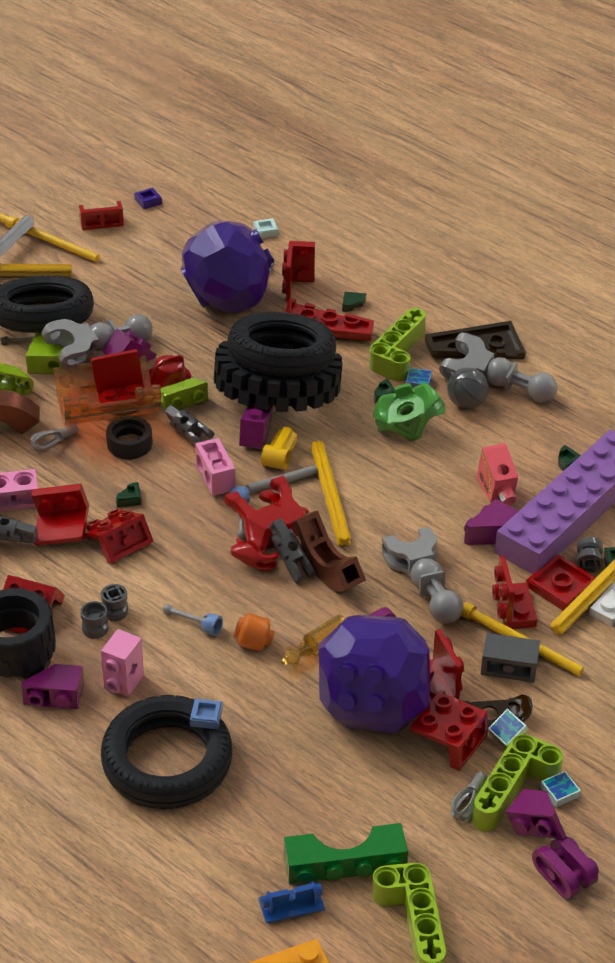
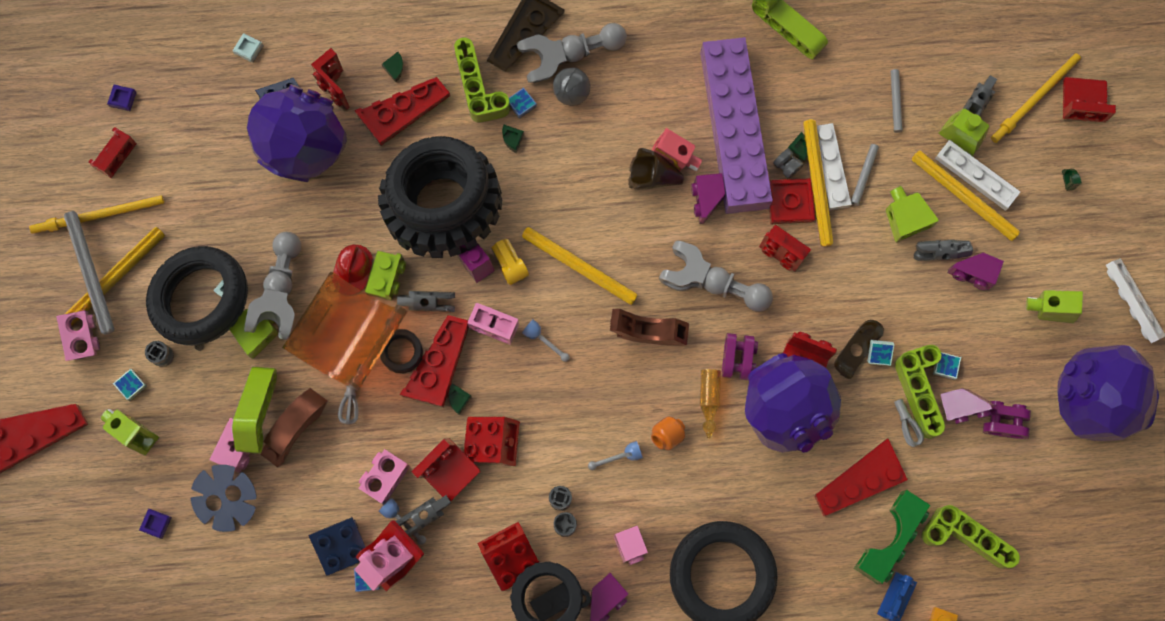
camera: 50 degrees left, 35 degrees up
(117, 376) = (347, 316): red bracket -> none
(128, 341) = (306, 273): magenta slope -> none
(147, 464) = (438, 365): none -> red wing
(206, 713) = (728, 533): medium blue tile -> none
(258, 522) = (580, 337): red animal -> none
(290, 550) = (619, 346): dark grey hinge -> none
(291, 476) = (536, 284): light grey bar -> none
(374, 799) = (865, 478): none -> red wing
(408, 410) = (568, 133): bright green piece -> none
(453, 725) = (857, 388): red bracket -> none
(467, 480) = (652, 171): none -> dark brown hat
(470, 612) = (810, 274): yellow bar -> none
(510, 657) = (828, 296): dark grey brick -> none
(566, 457) = (687, 86): dark green tile -> none

